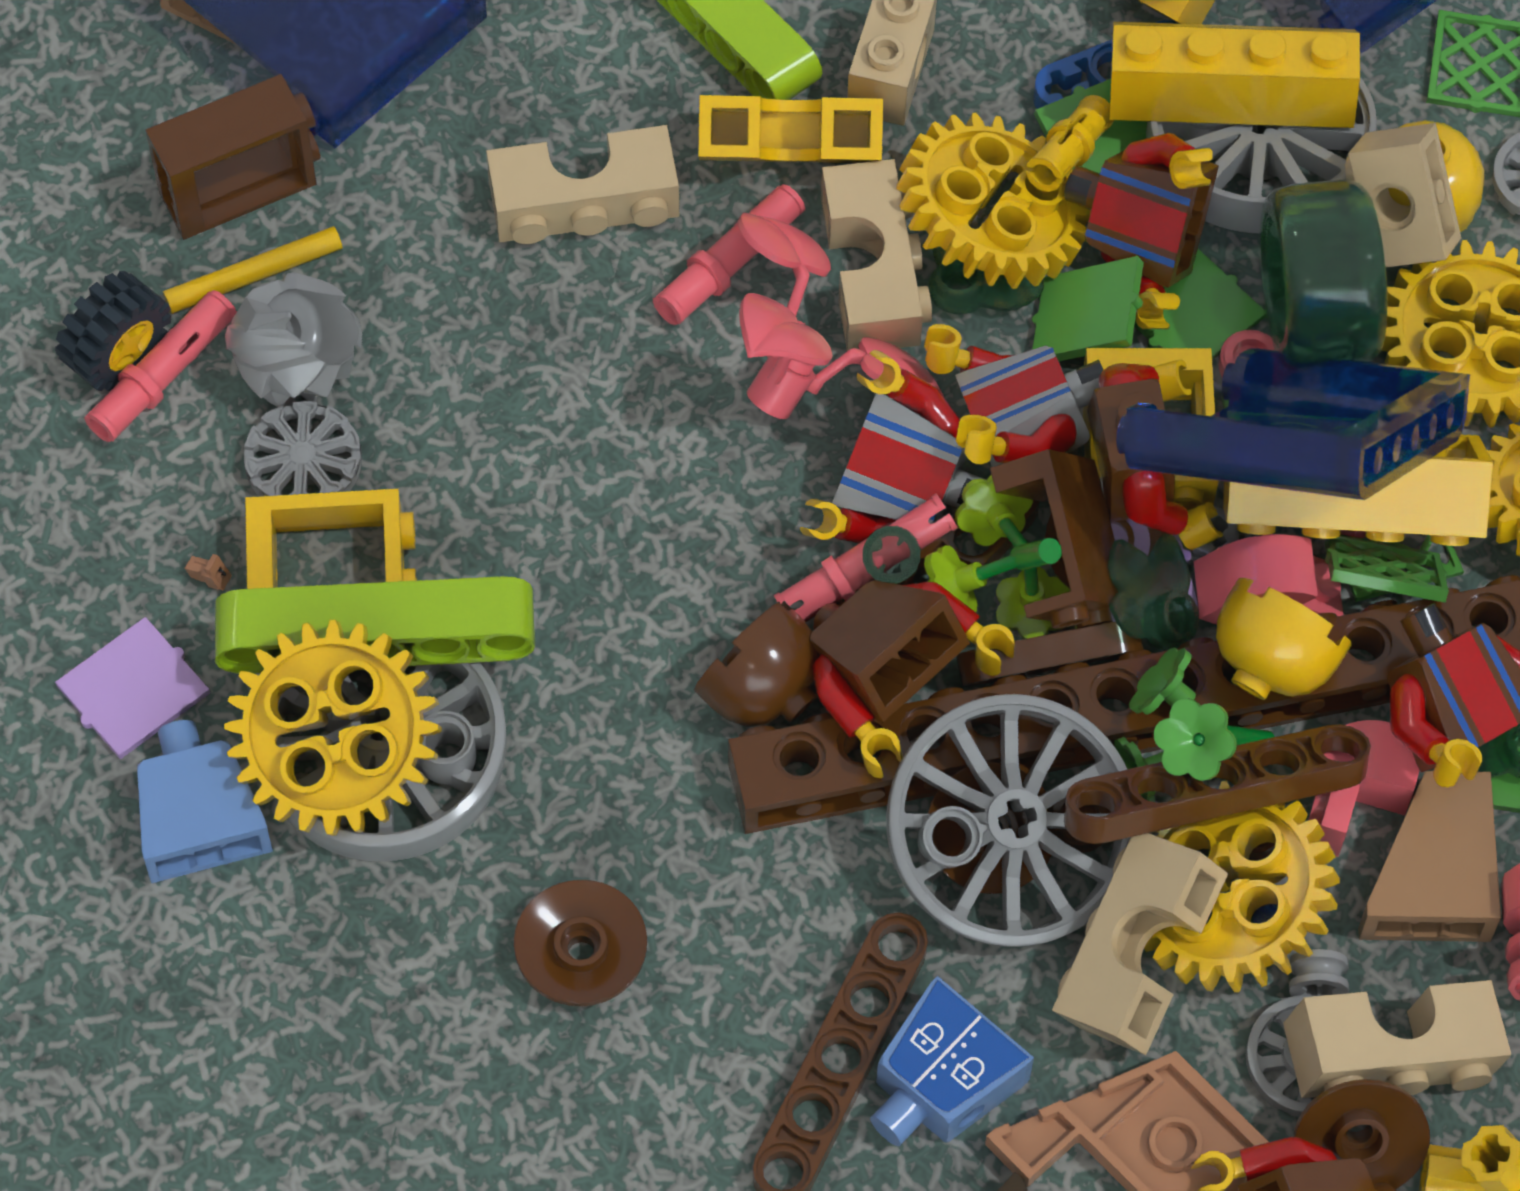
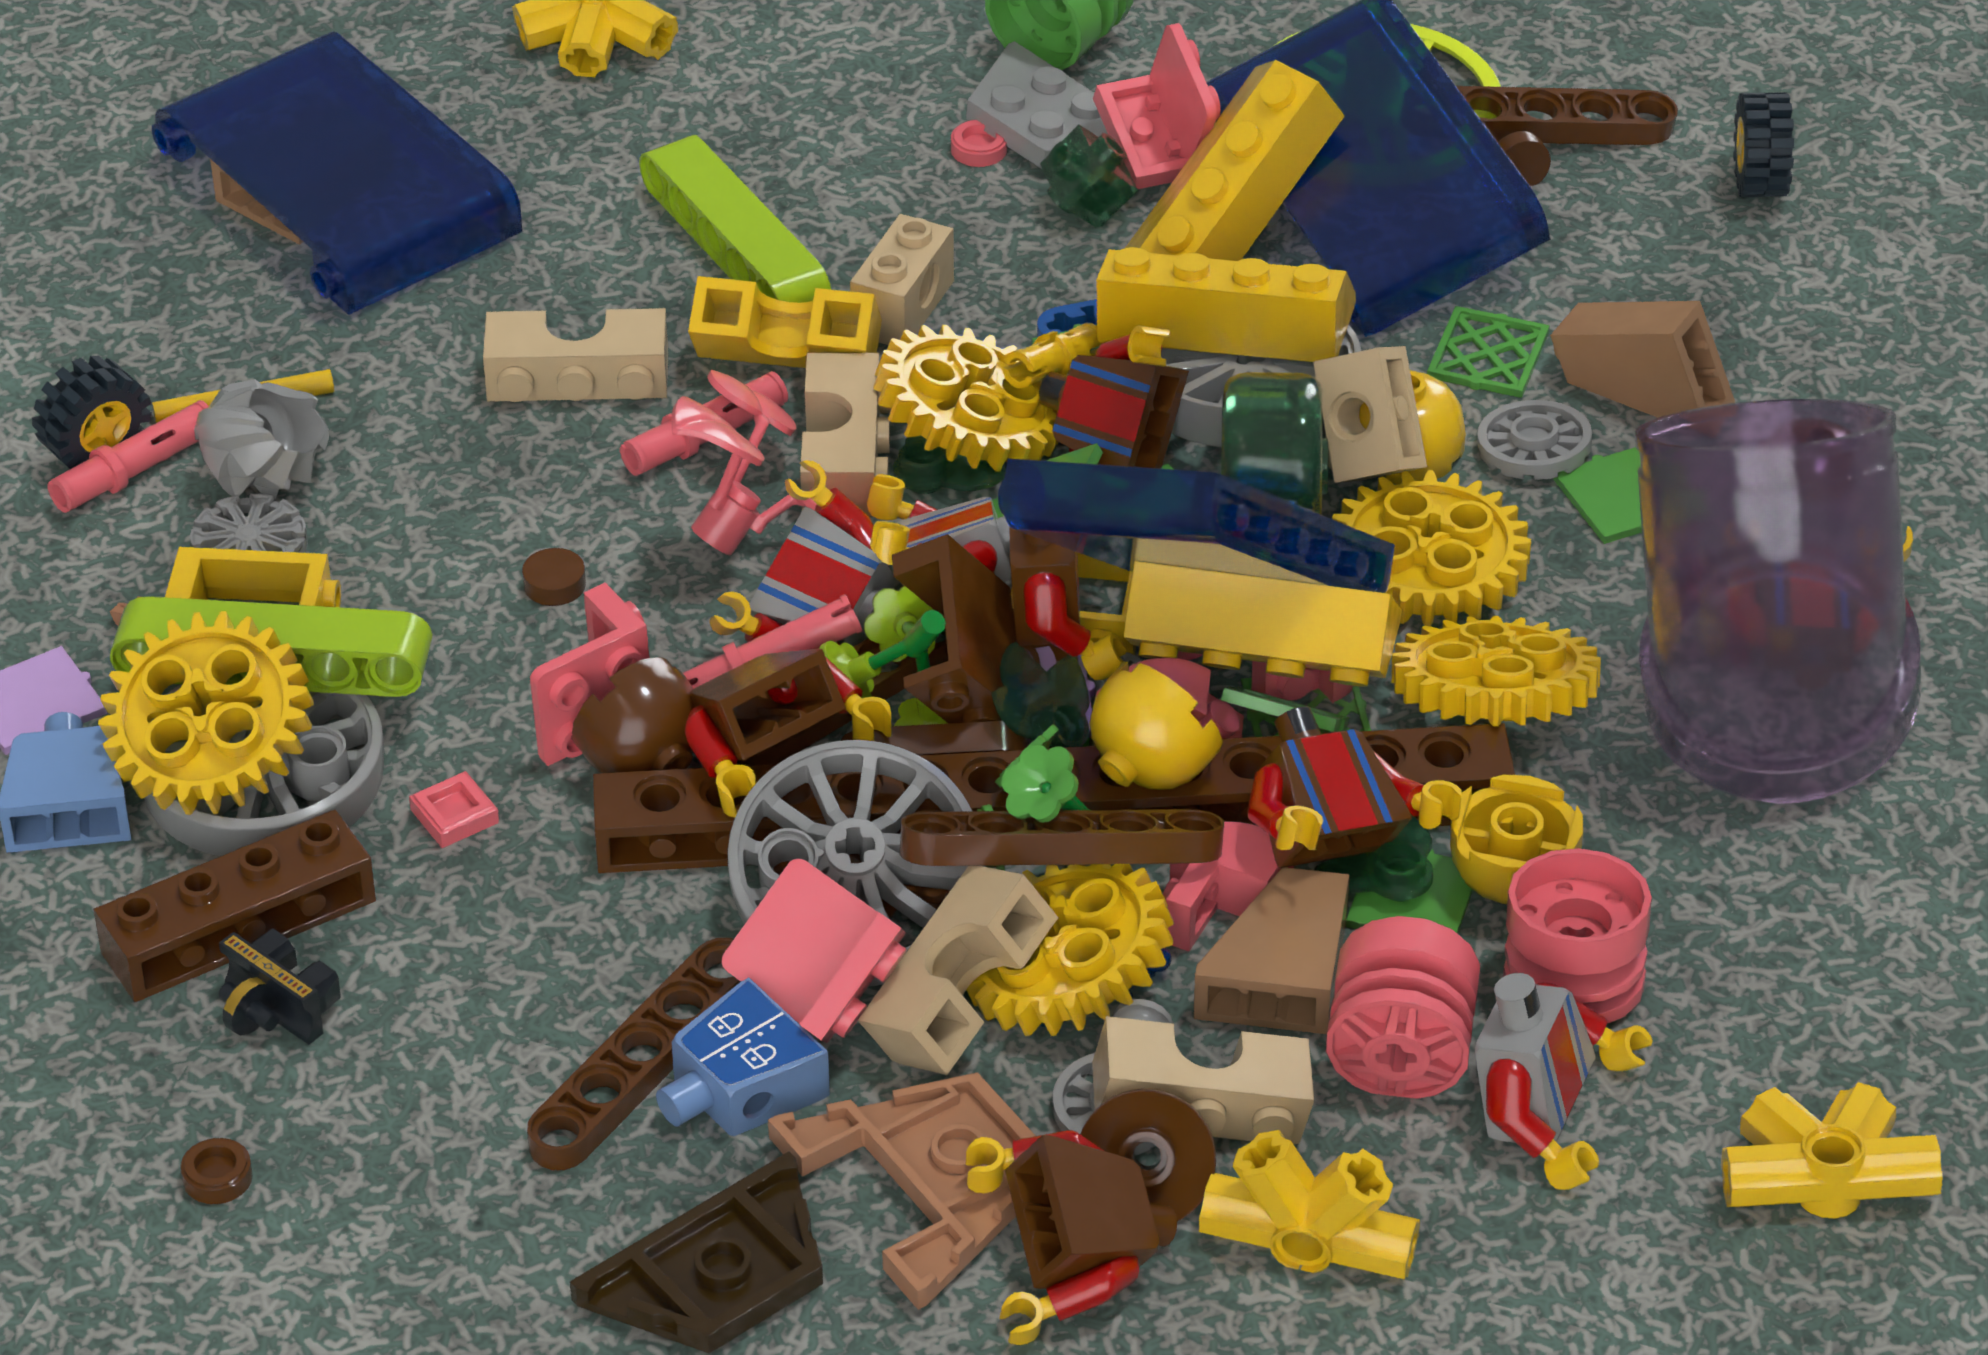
camera: 10 degrees right, 20 degrees down
(225, 129) = (251, 332): reddish brown window -> none
(402, 934) = (275, 883): none -> reddish brown brick
(444, 1018) = (266, 992): none -> black hips
(576, 914) = (407, 928): reddish brown dish -> none
(587, 776) = (454, 809): none -> coral tile
(620, 467) = (554, 576): none -> reddish brown tile
(727, 603) = (564, 683): none -> coral bracket
(875, 543) = (773, 624): clear green bush -> none
(1003, 943) = (815, 950): none -> coral bracket

